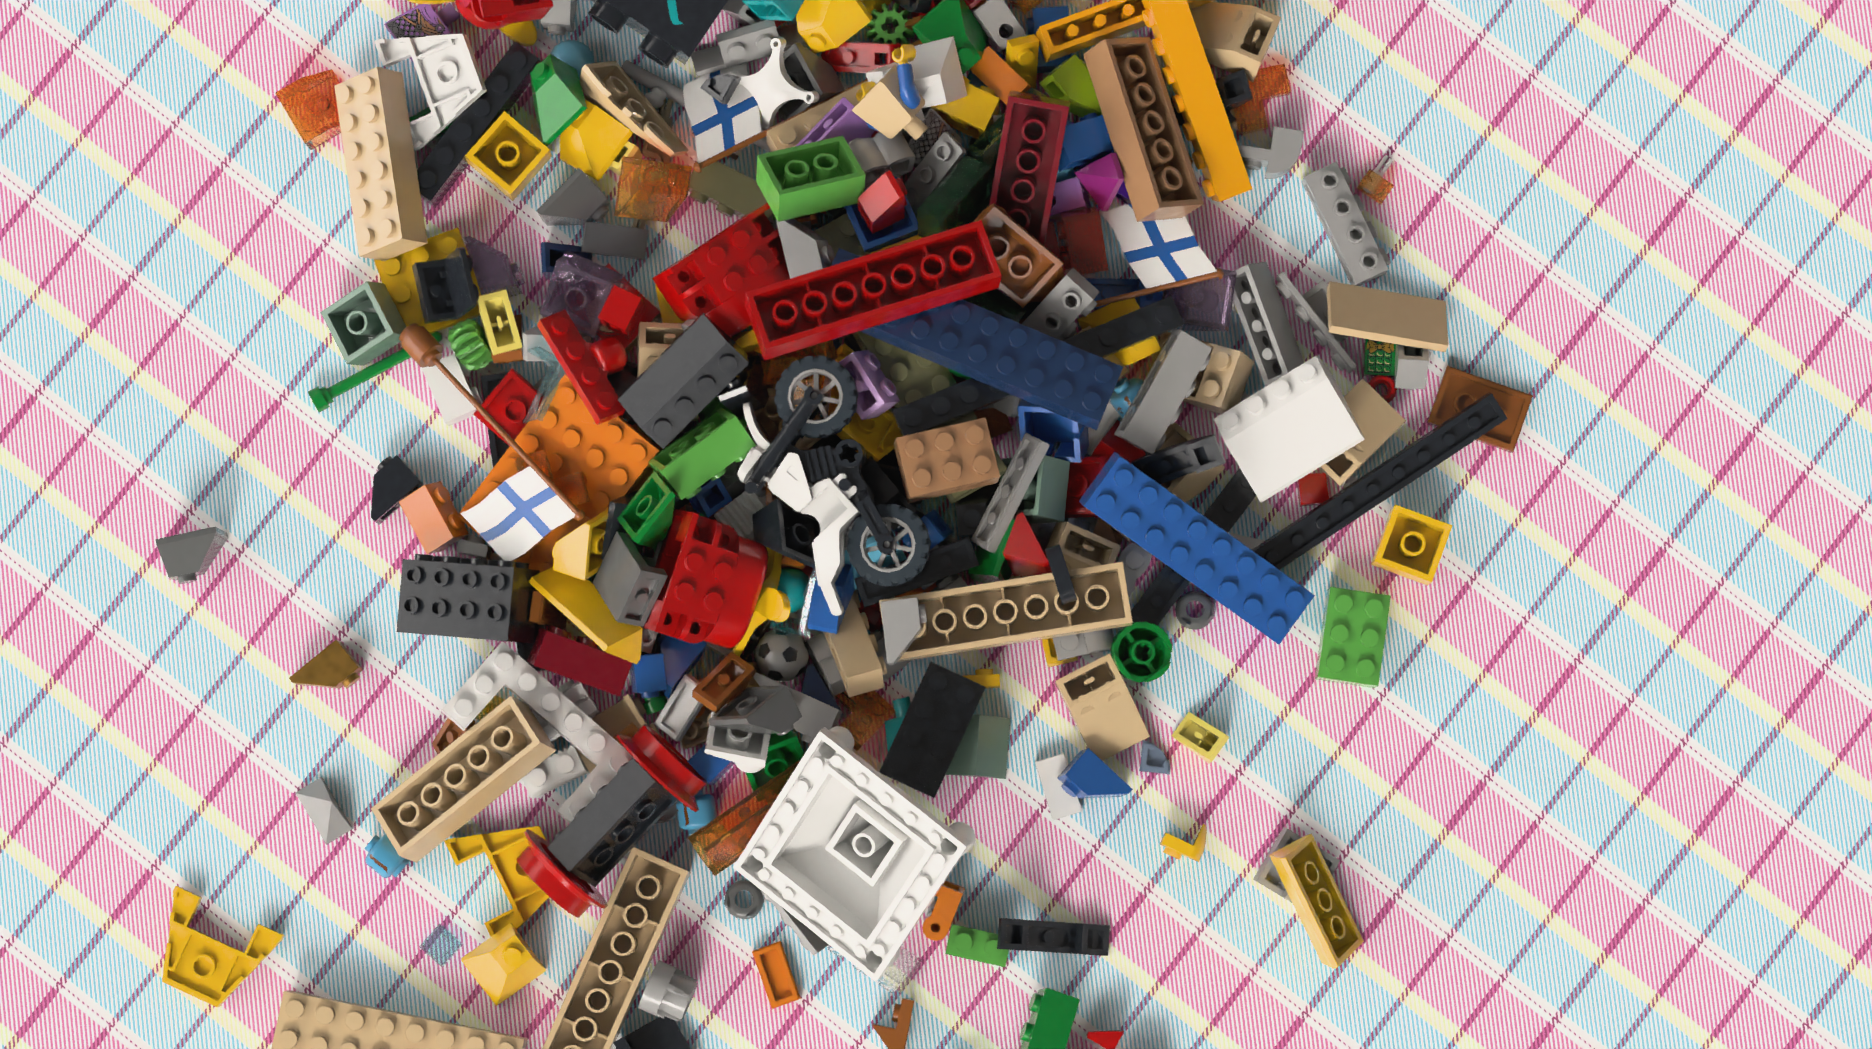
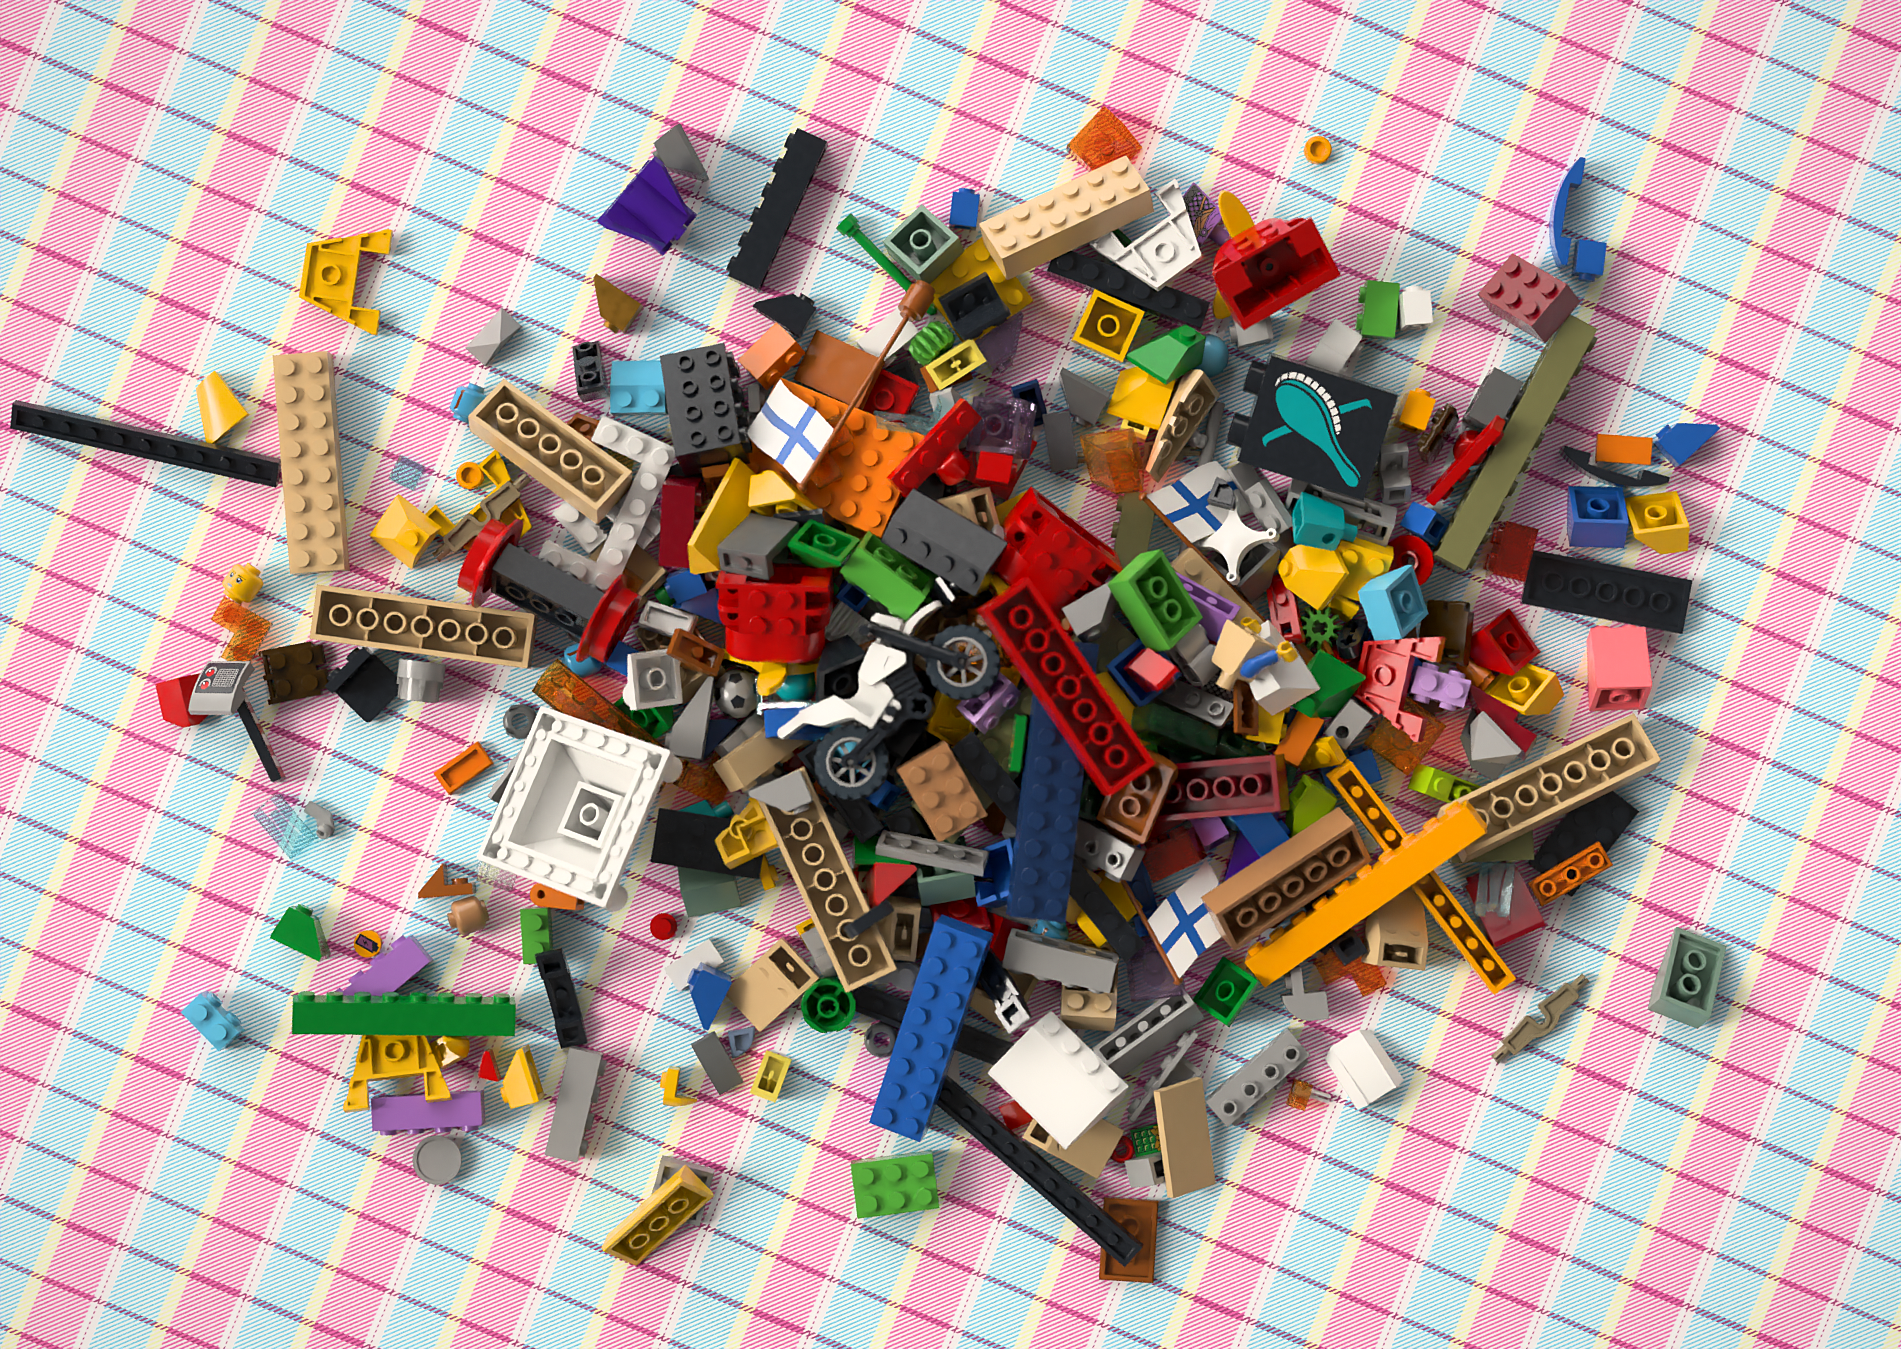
camera: 70 degrees right, 5 degrees up
(237, 600) = (649, 209): none -> dark purple brick
(281, 468) = (777, 210): none -> black brick
(340, 271) = (964, 209): none -> blue brick
(392, 715) = (590, 371): none -> black slope
(425, 669) = (637, 388): none -> medium azure slope
(464, 878) = (469, 475): none -> light orange tile
(467, 451) = (837, 369): none -> tile
(520, 890) = (493, 506): none -> dark tan piece
(759, 711) = (679, 690): dark grey slope -> none
(918, 366) = (1017, 742): none -> green tile
(935, 684) = (746, 836): none -> yellow slope
(936, 1013) = (468, 915): none -> medium nougat head
(951, 120) = (1245, 709): none -> dark orange slope
(1007, 807) = (663, 926): none -> red plate
(1102, 180) = (1231, 855): magenta slope -> none
(1131, 1007) = (522, 1080): none -> yellow slope
(1170, 791) = (717, 1063): none -> dark grey slope
(1171, 956) = (574, 1104): none -> light grey brick
(1245, 230) = (1226, 991): none -> green slope
(1366, 113) = (1363, 1068): none -> white slope
(1411, 545) = (990, 1213): yellow brick -> none

